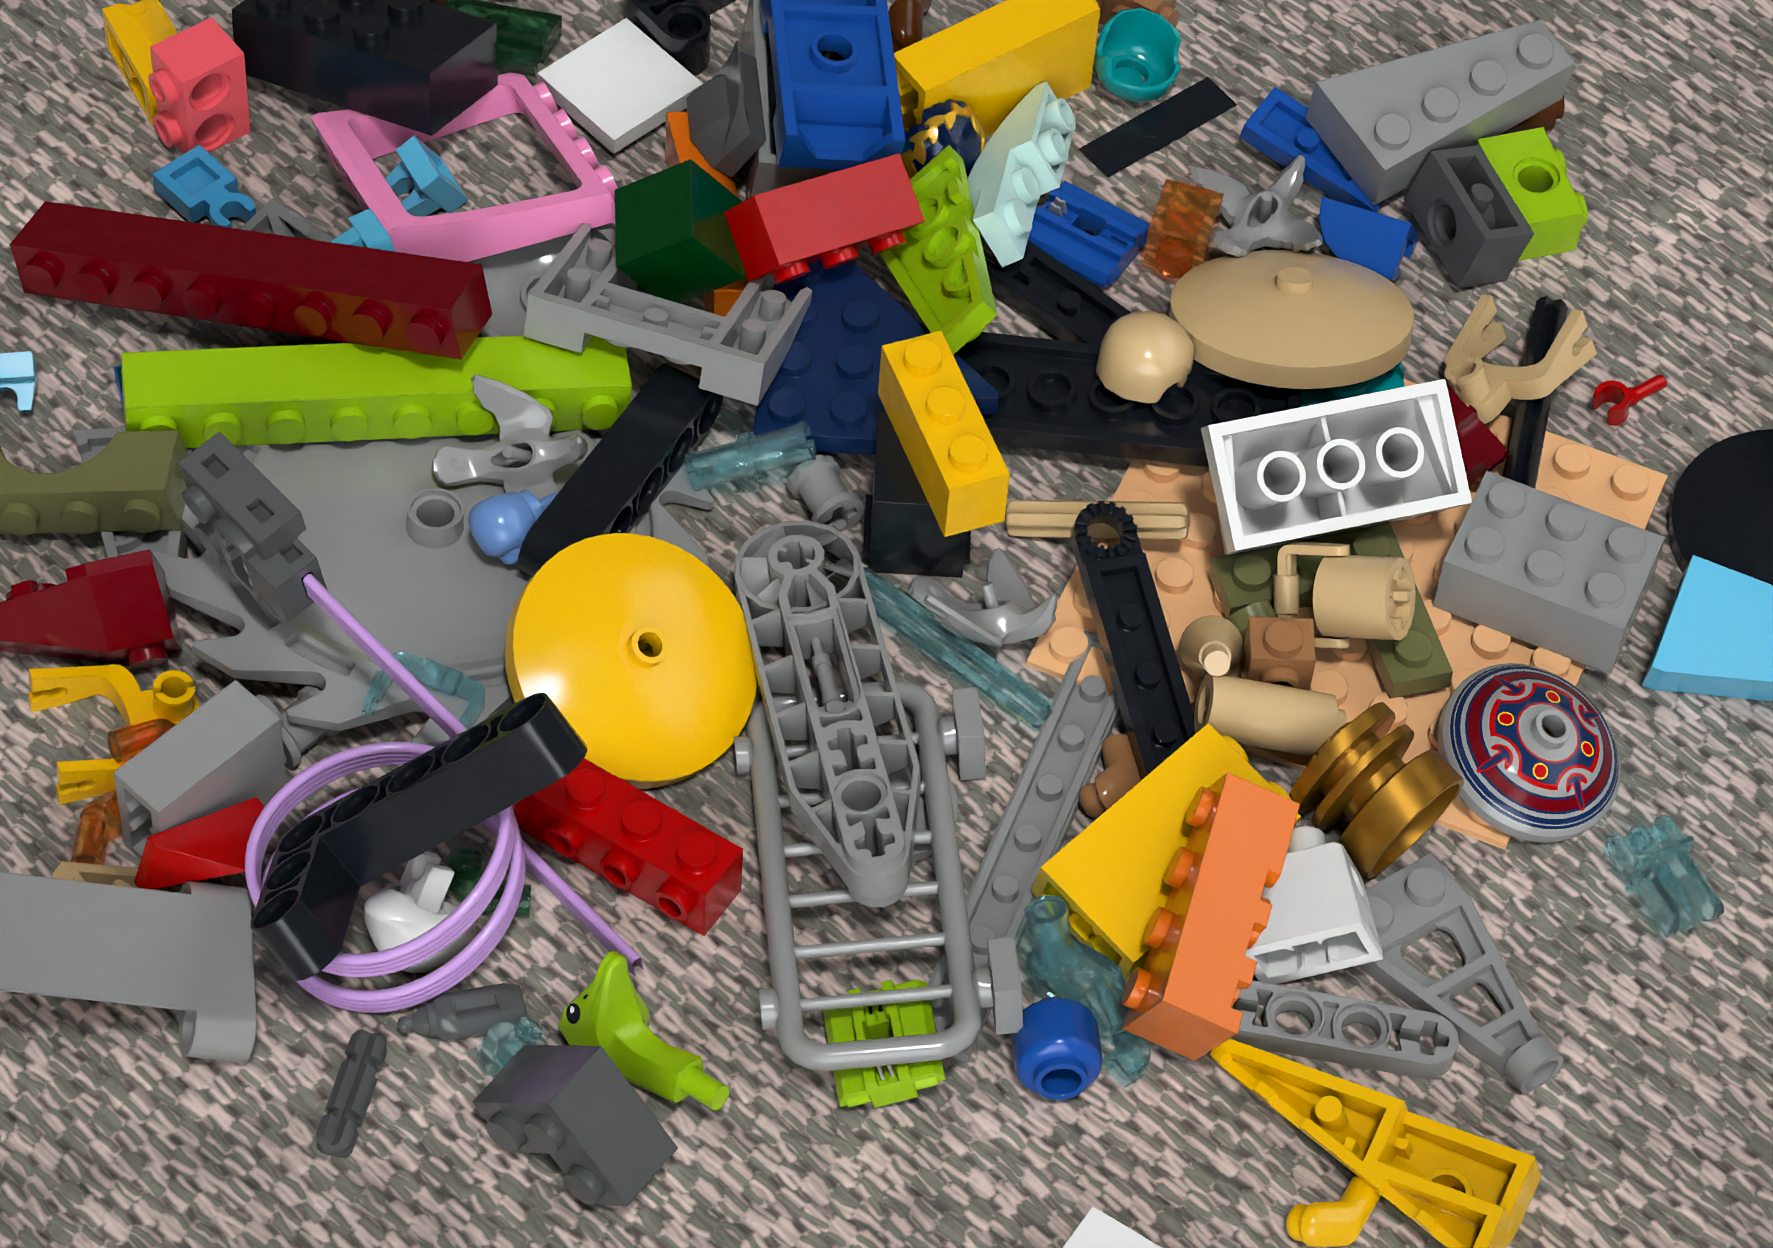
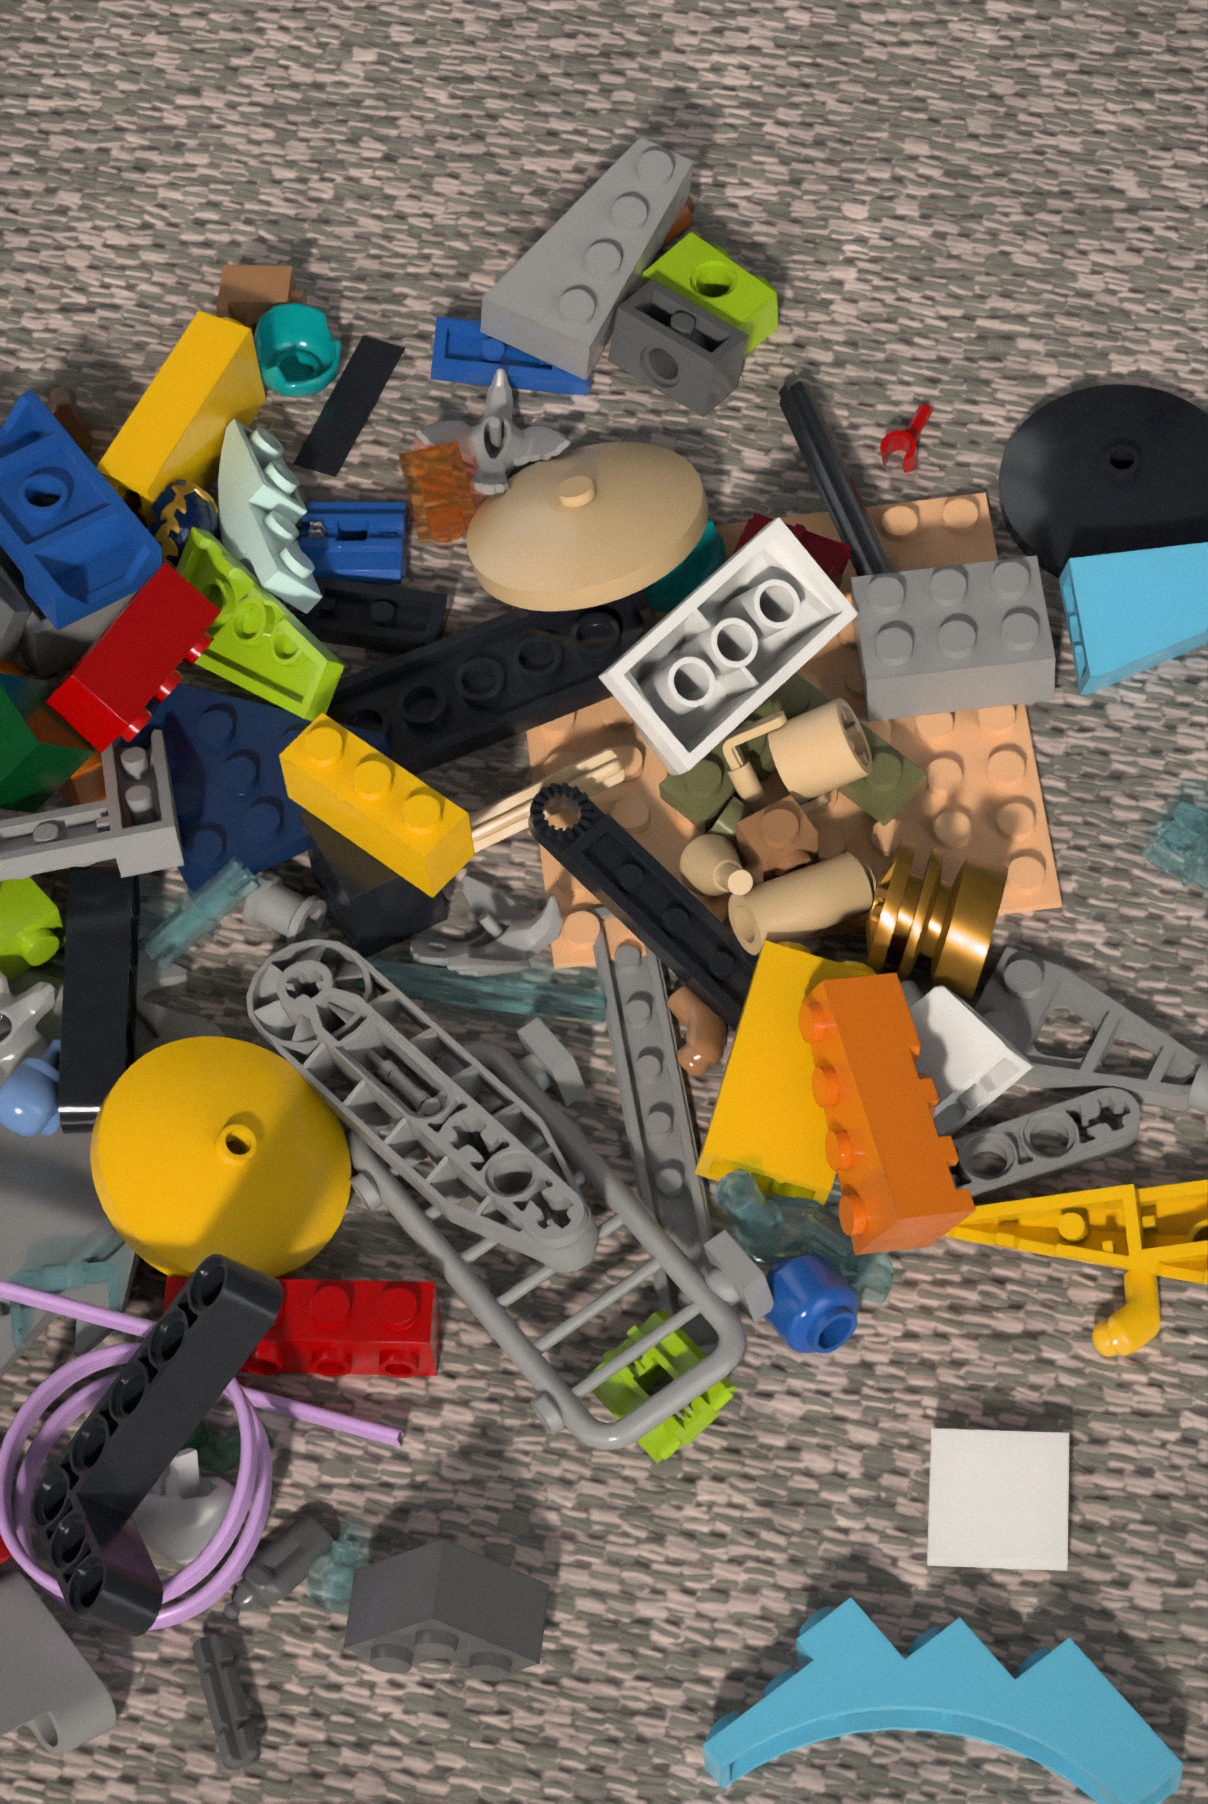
camera: 20 degrees left, 5 degrees up
(617, 1019) = (416, 1508): lime animal -> none
(1144, 356) = (489, 631): tan hair -> none
(1367, 237) = (599, 414): blue brick -> none
(1493, 386) = (797, 494): tan piece -> none
(1517, 772) = (1007, 818): dish -> none

